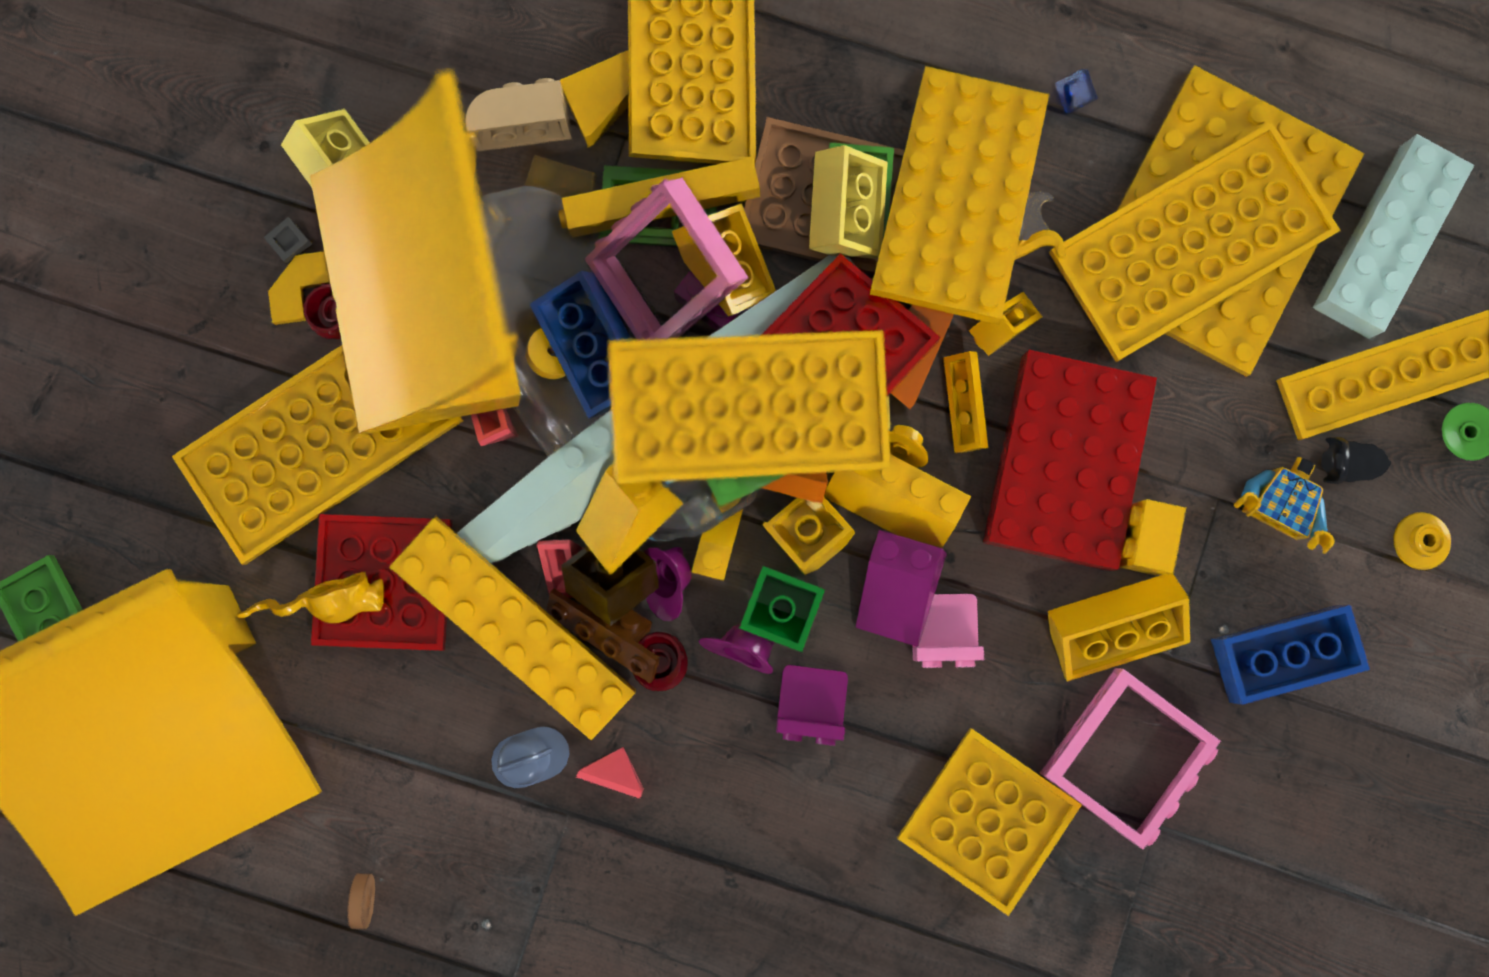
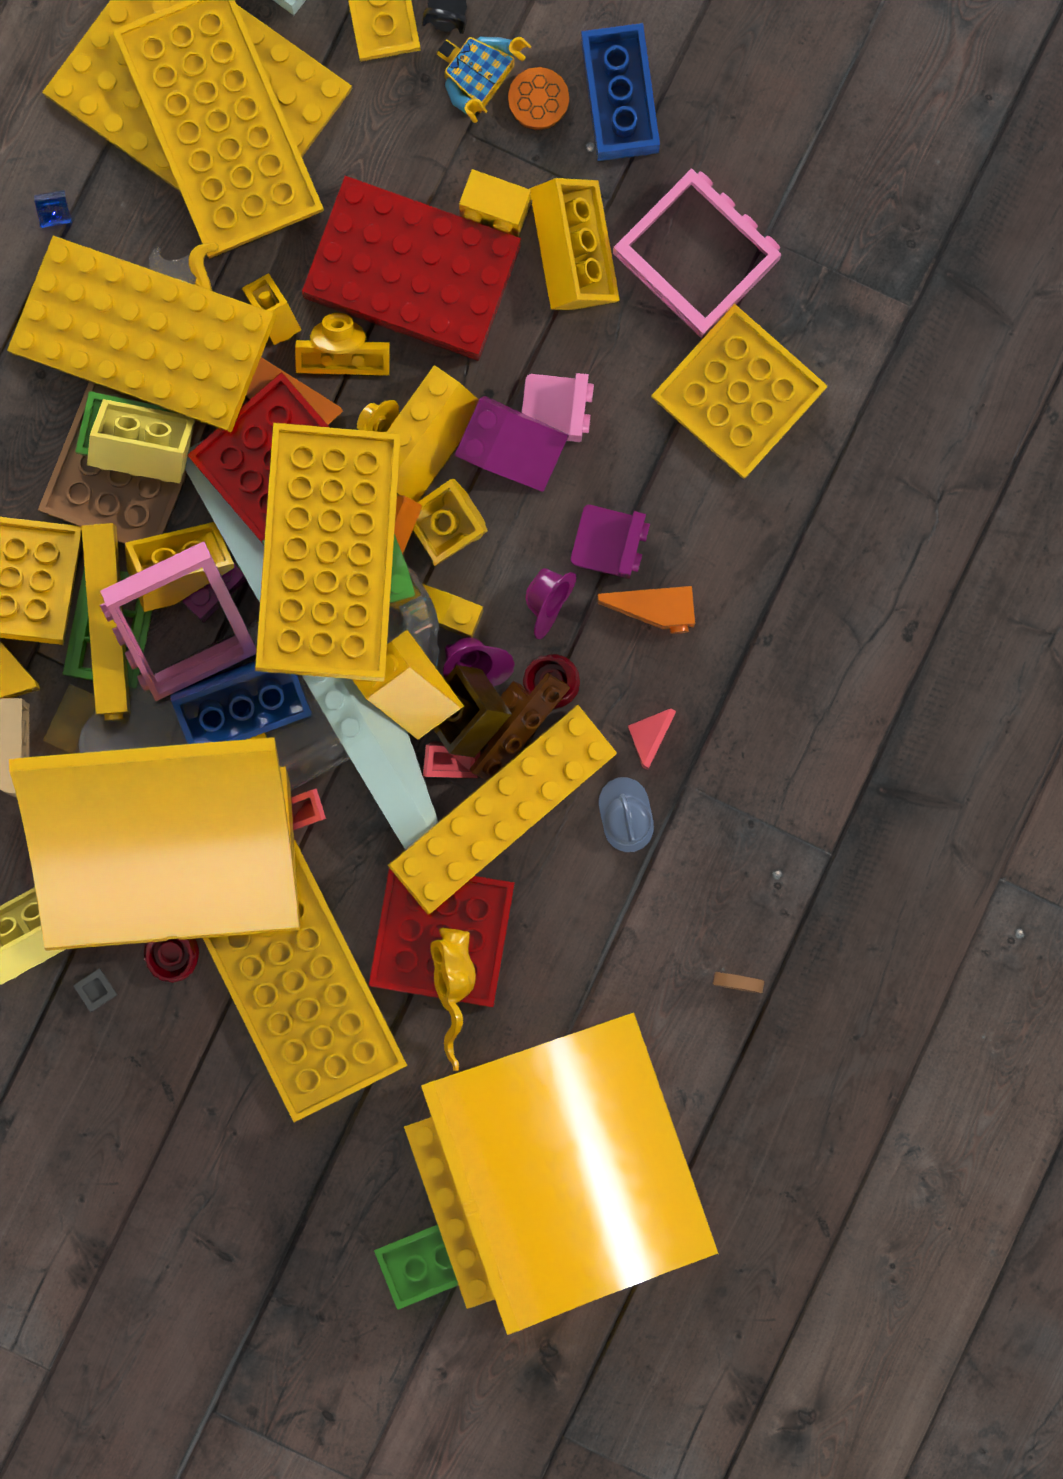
camera: 80 degrees left, 0 degrees up
(287, 293) = (128, 979): yellow tile -> none
(748, 770) = (658, 607): none -> orange slope
(782, 609) = (516, 555): green slope -> none
(988, 393) = (337, 334): none -> yellow piece
(1267, 569) = (538, 98): none -> orange tile

